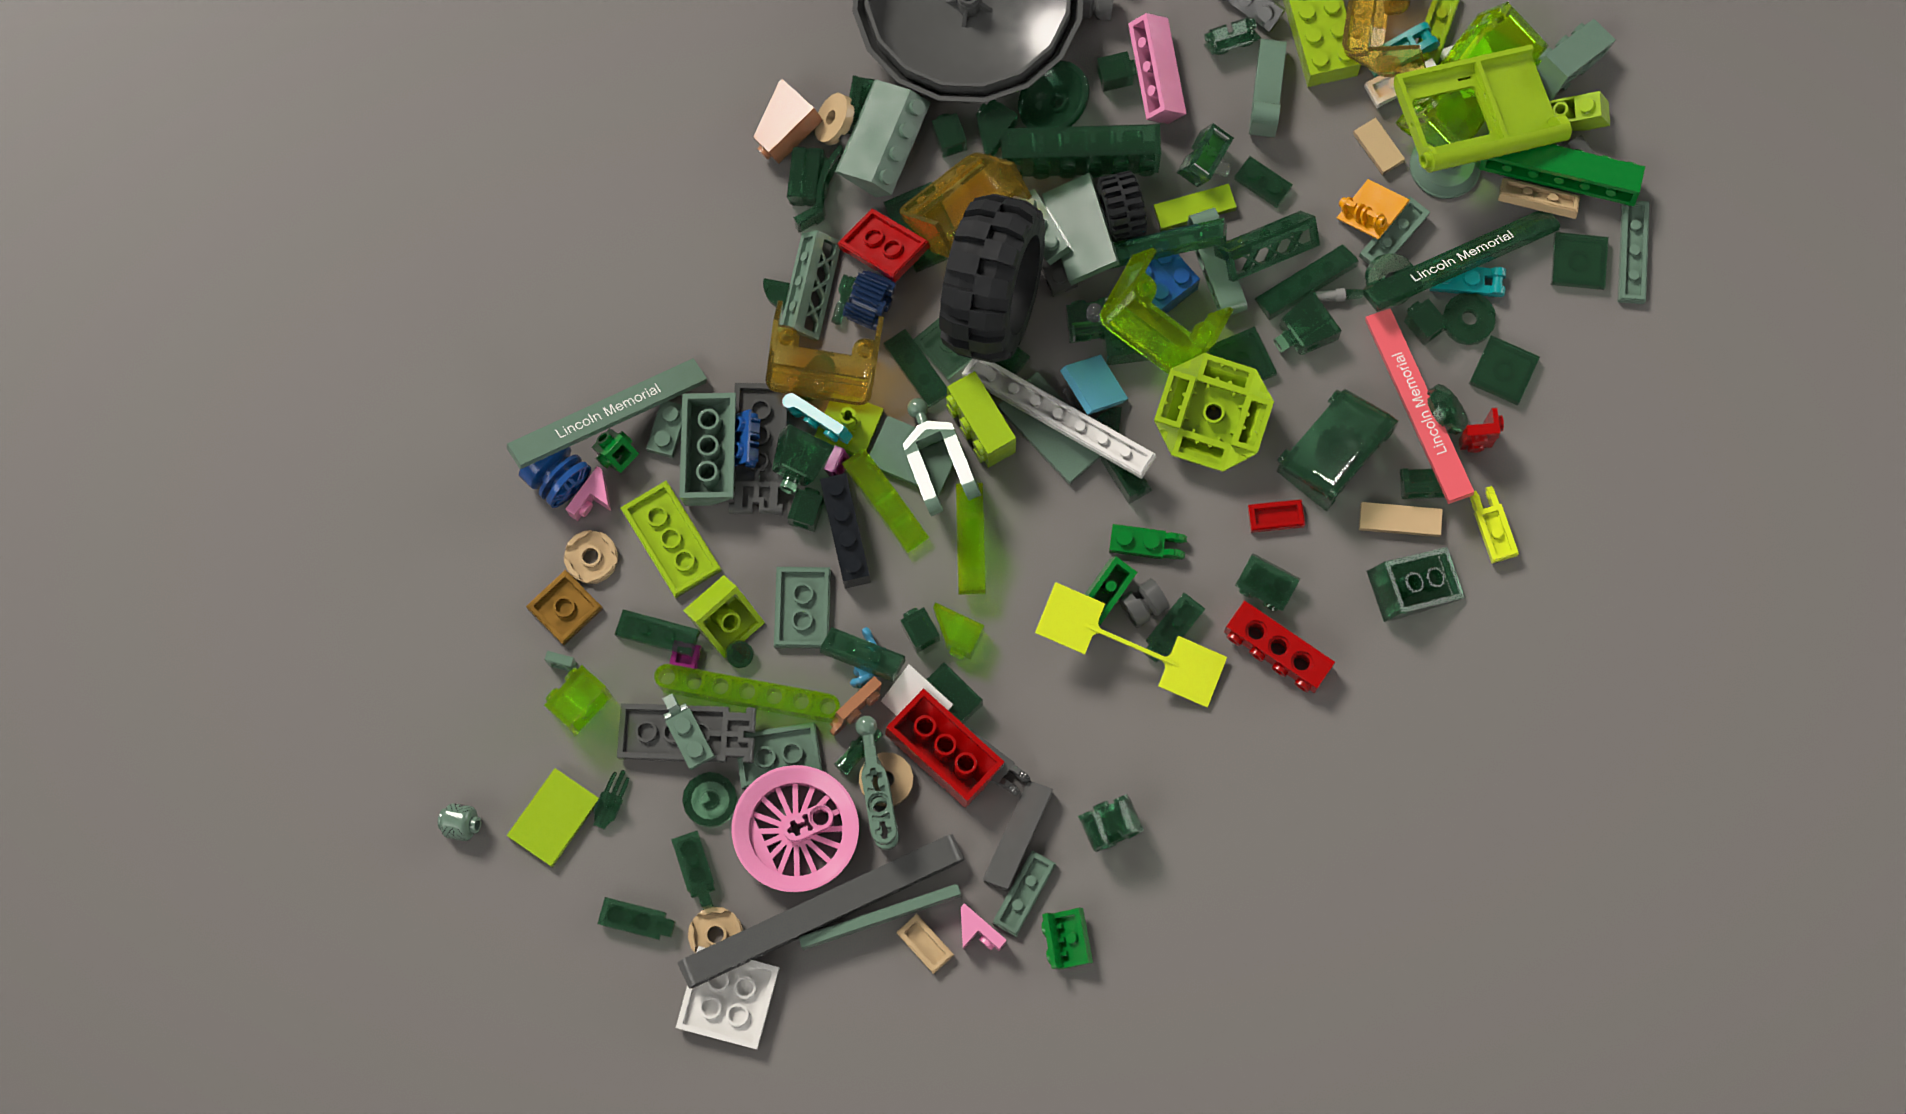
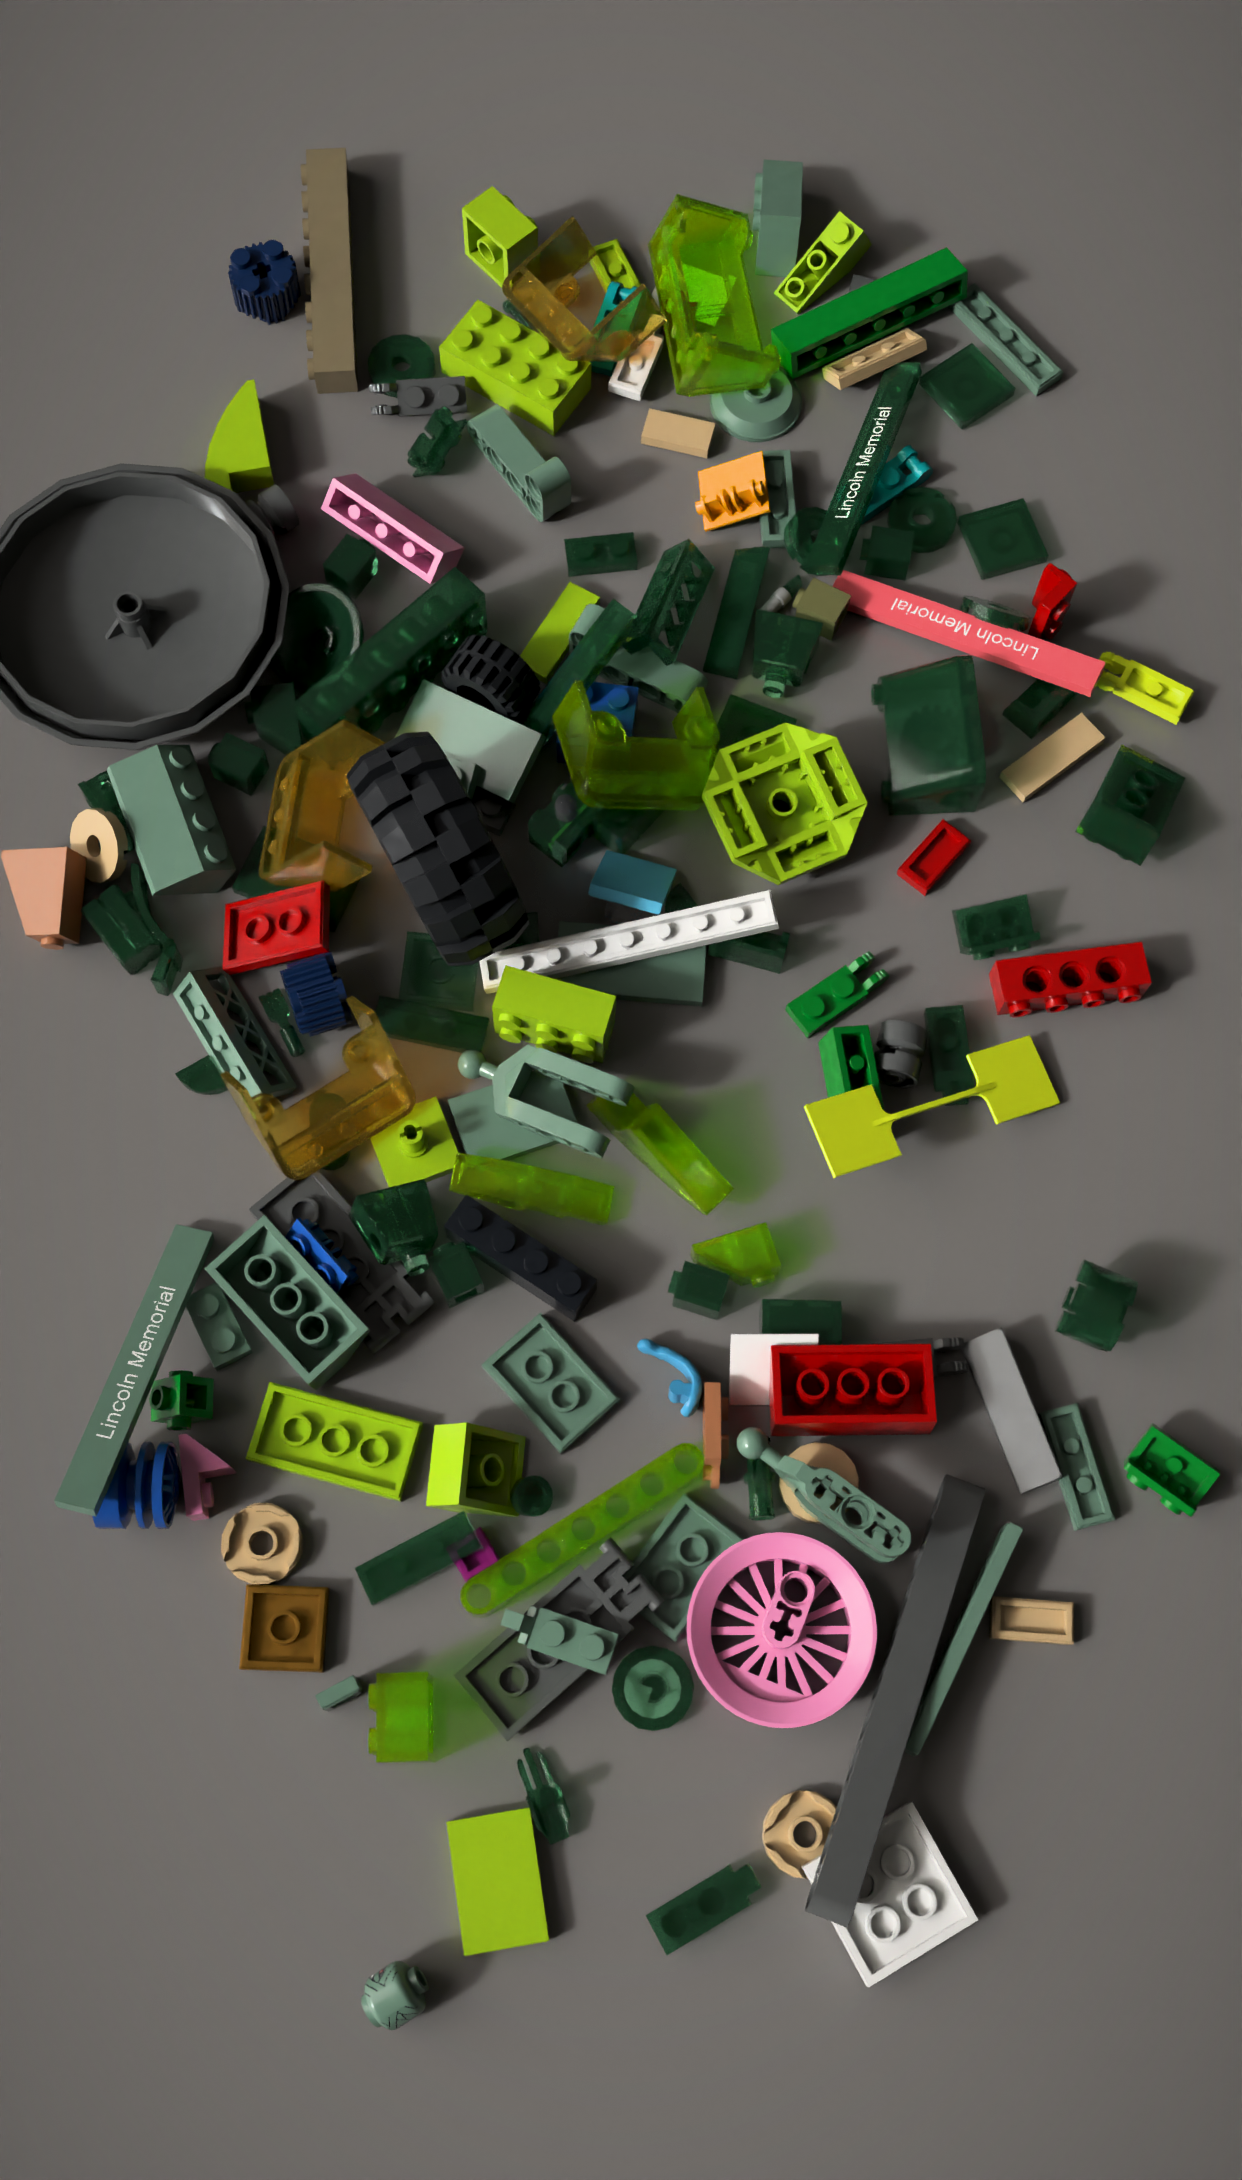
camera: 50 degrees left, 5 degrees down
(695, 867) = (711, 1780): clear green hinge -> none
(815, 418) = (376, 1166): plate -> none
(833, 465) = (443, 1199): magenta tile -> none
(862, 654) = (668, 1371): clear green tile -> none
(973, 924) = (1064, 1551): bright pink slope -> none
(1207, 156) = (524, 568): clear green piece -> none
(1354, 321) = (822, 604): none -> olive brick
(1508, 96) = (763, 283): lime piece -> none

